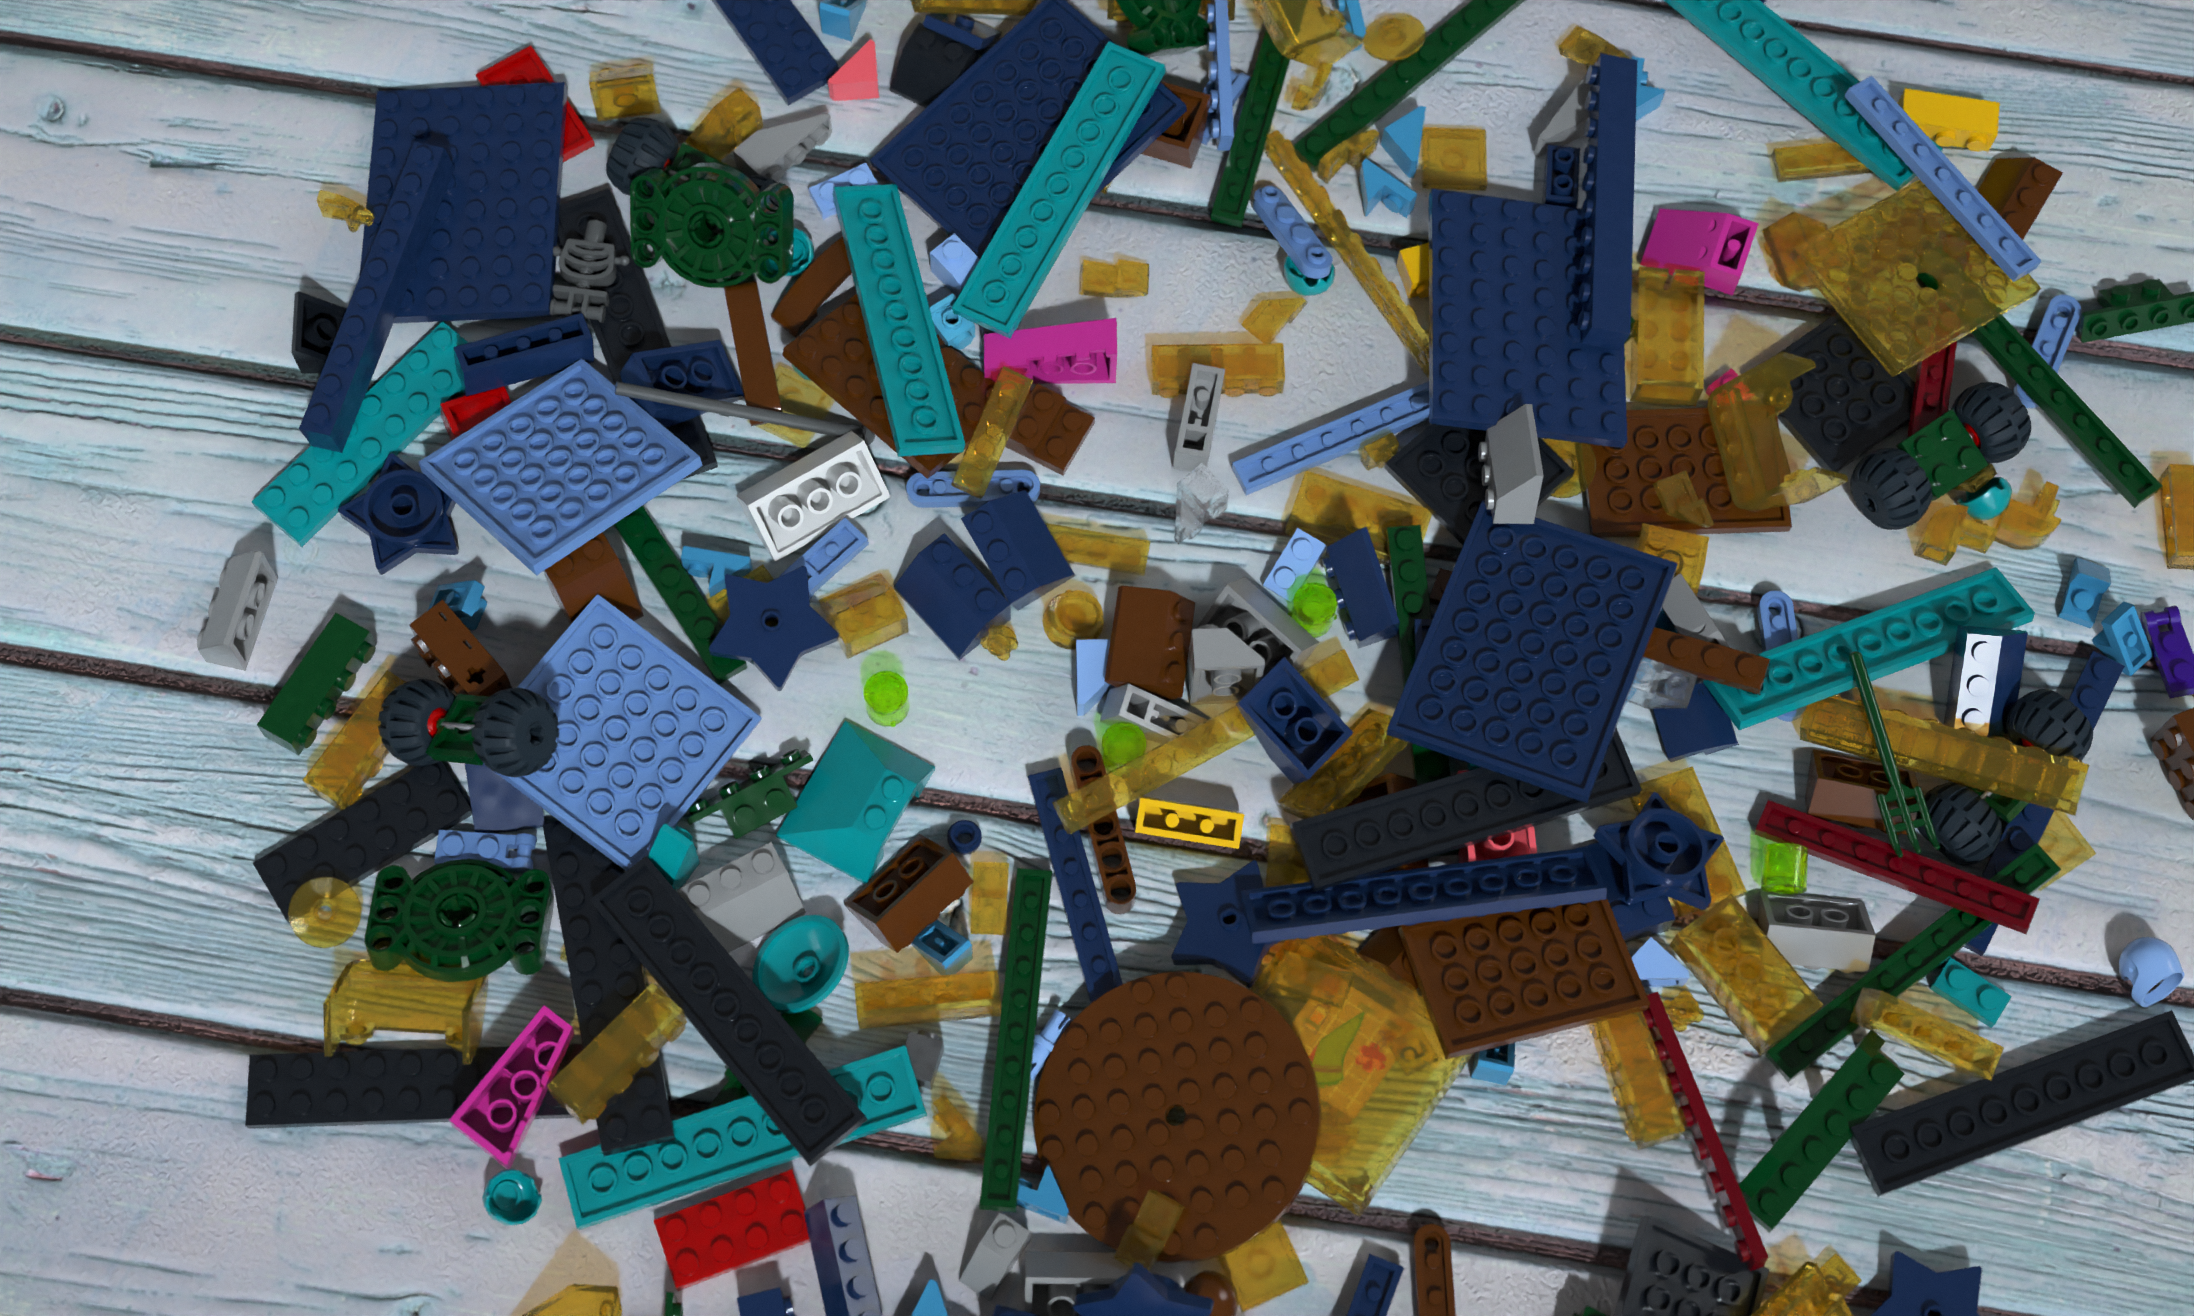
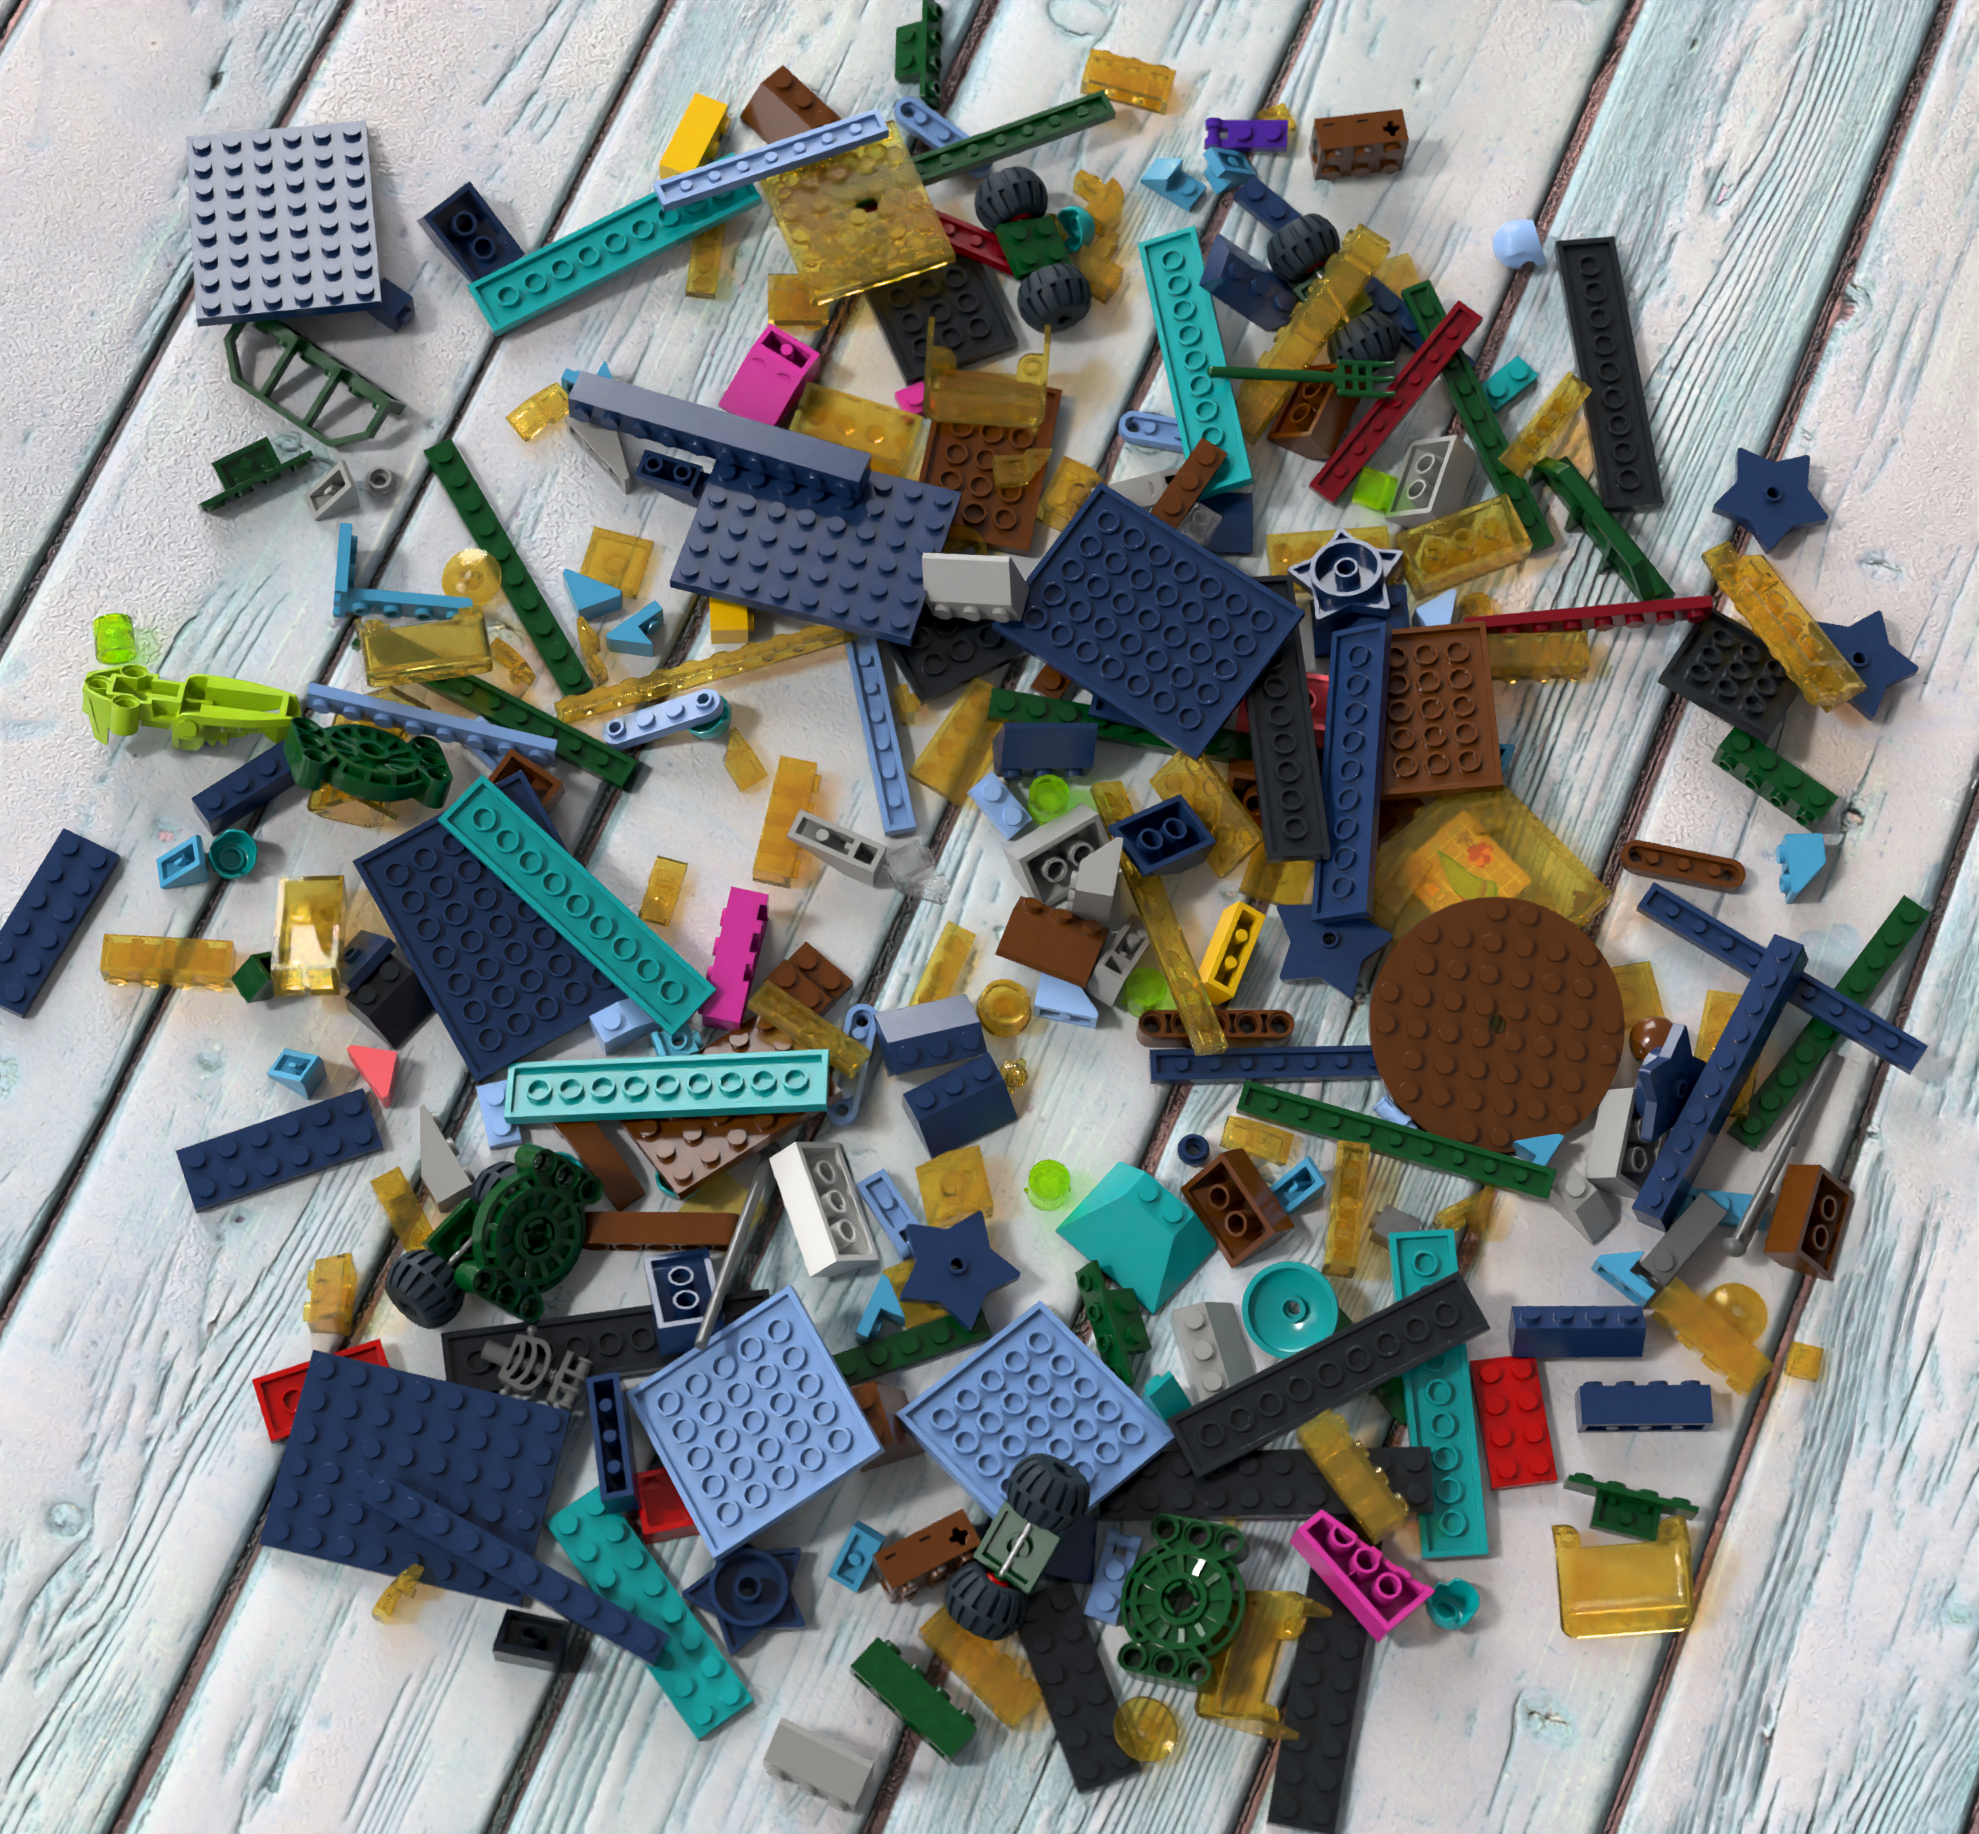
camera: 80 degrees left, 0 degrees up
(1150, 1230) = (1595, 1069): clear yellow slope -> none

